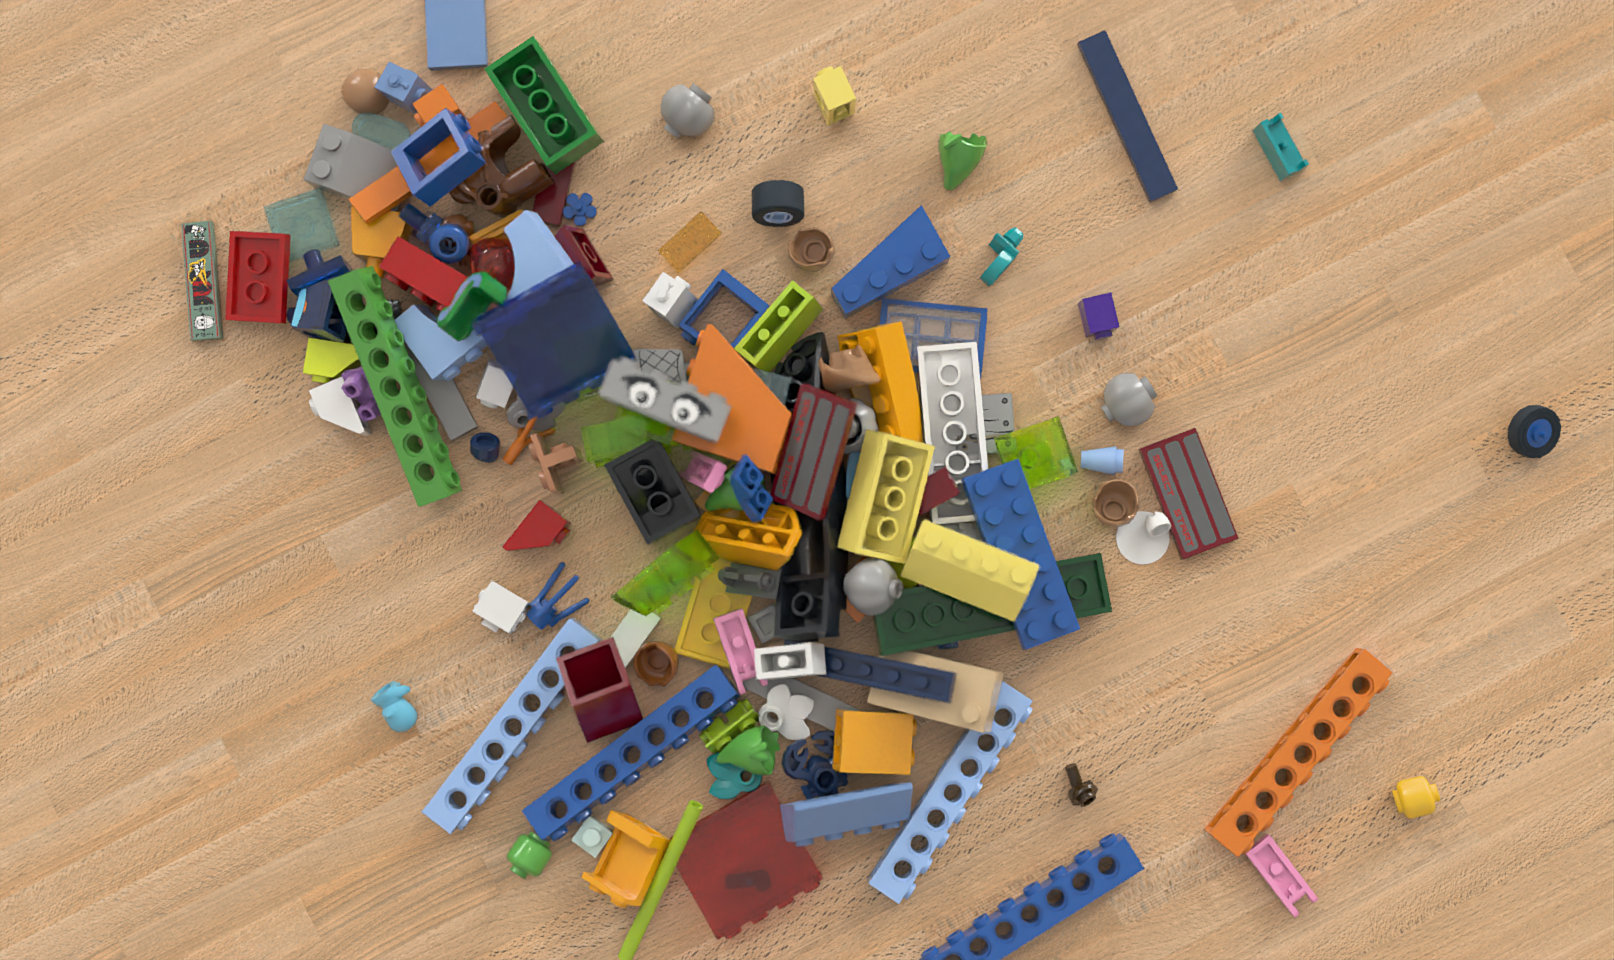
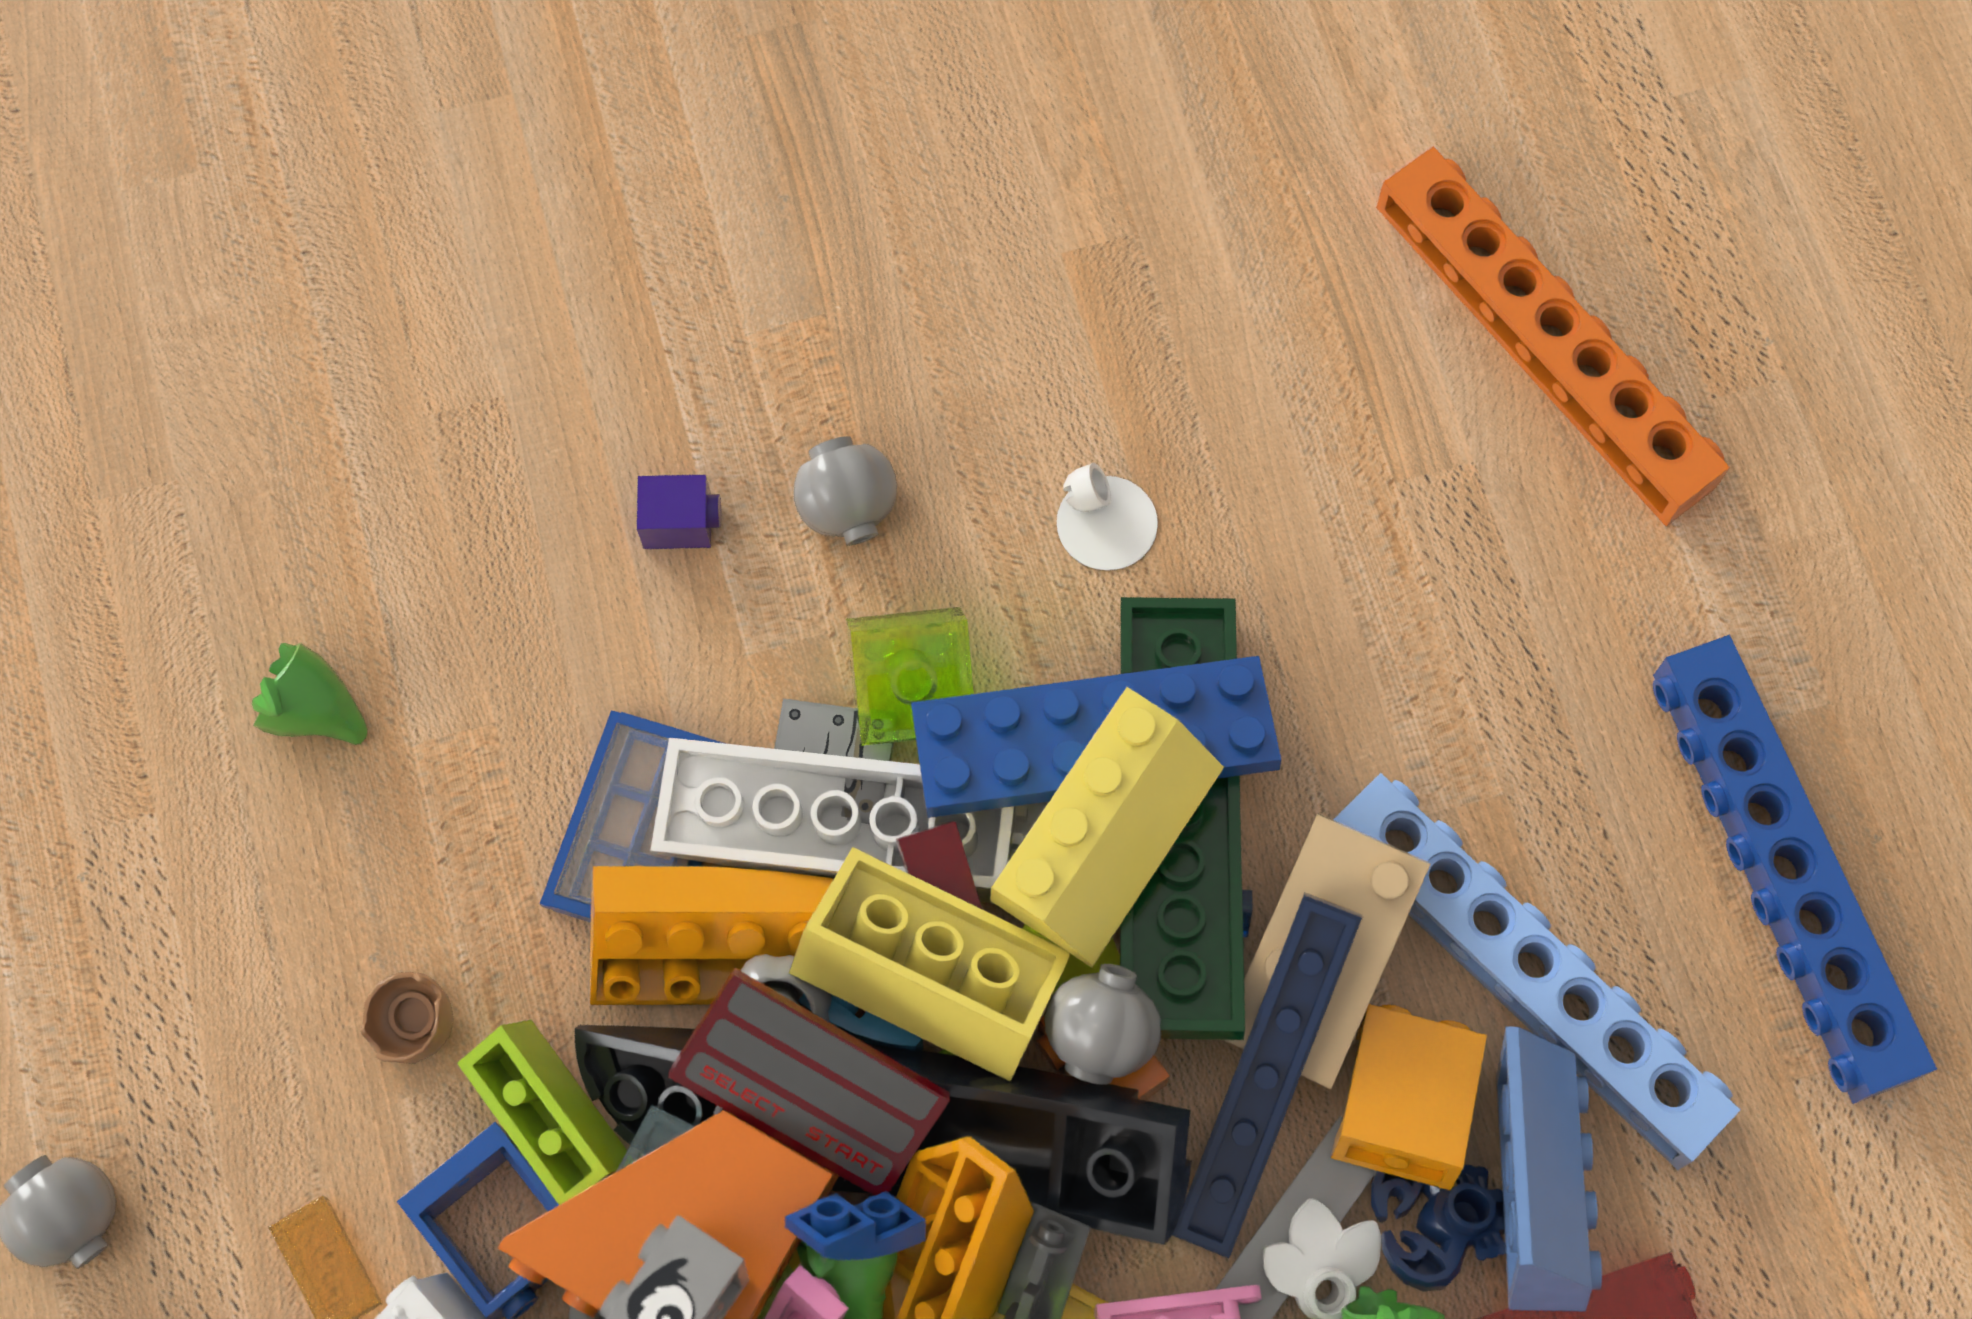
camera: 75 degrees left, 15 degrees down
(764, 623) = (1133, 1267): light grey tile -> none
(777, 203) = (296, 1064): black wheel -> none
(790, 661) = (1222, 1225): white brick -> none
(833, 94) = (114, 907): light yellow brick -> none
(847, 370) = (662, 987): medium nougat hair -> none
(896, 262) = (476, 856): blue wedge -> none
(1007, 251) = (510, 648): teal piece -> none
(1082, 792) = (1567, 724): dark brown plate -> none
(1103, 460) = (948, 557): light blue cone -> none
(1115, 503) = (1033, 550): medium nougat hair -> none
(1127, 116) = (319, 391): dark blue tile -> none
(1188, 493) = (1041, 426): dark grey tile -> none
(1279, 147) = (453, 150): teal hinge -> none
(1279, 873) = (1767, 408): bright pink hinge -> none
(1415, 797) = (1660, 158): yellow head -> none

